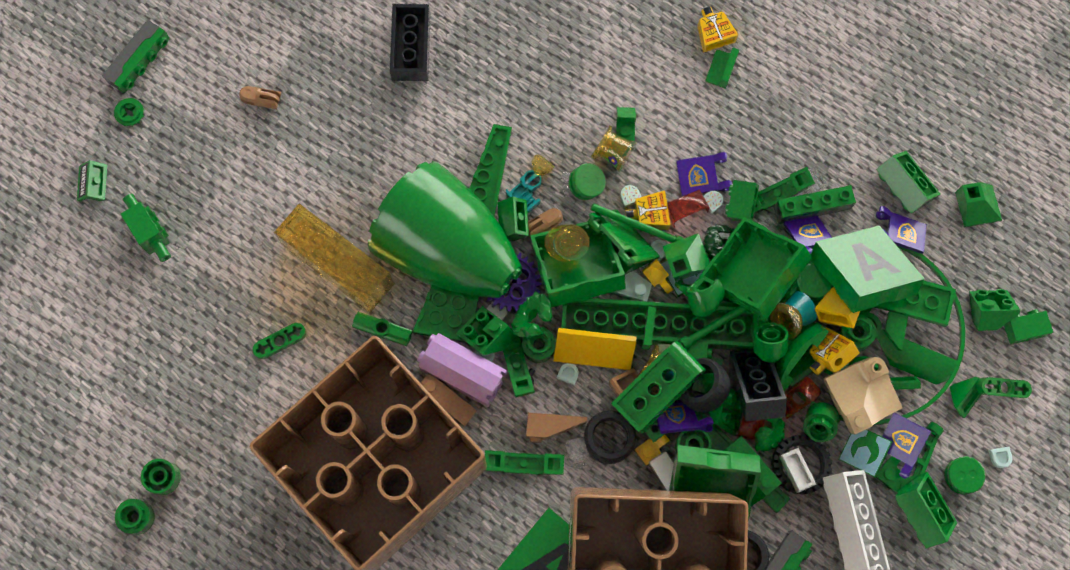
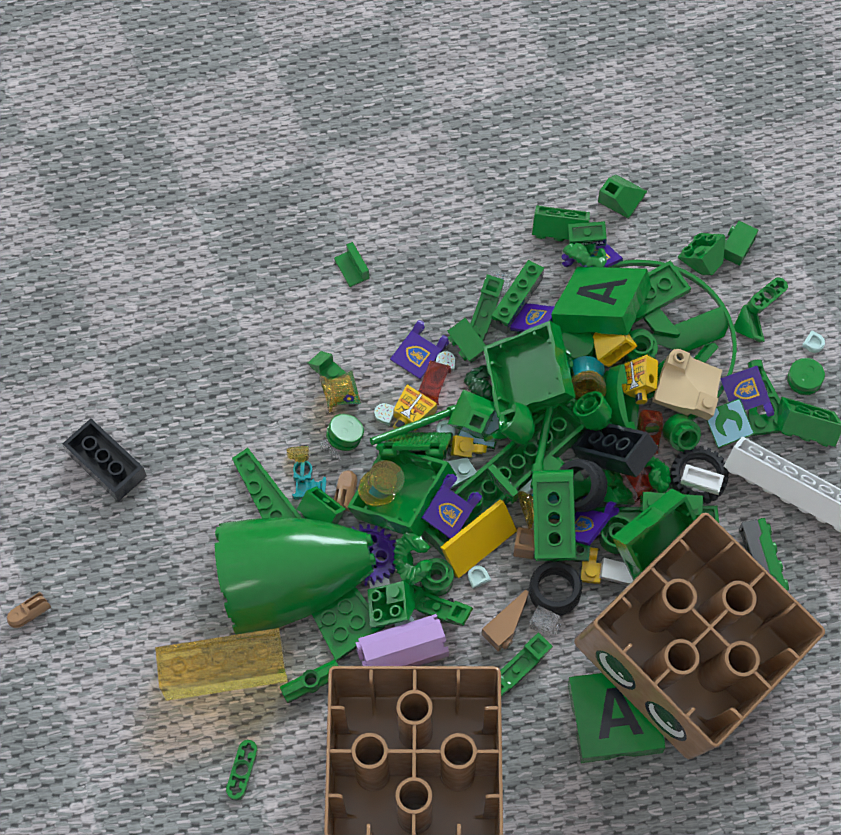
camera: 45 degrees left, 10 degrees down
(146, 228) = (45, 792): green brick -> none
(590, 308) = (448, 510): none -> dark purple flag
(715, 30) = (319, 245): yellow torso -> none
(891, 216) = (583, 253): none -> green piece
(916, 208) = (588, 233): none -> green panel

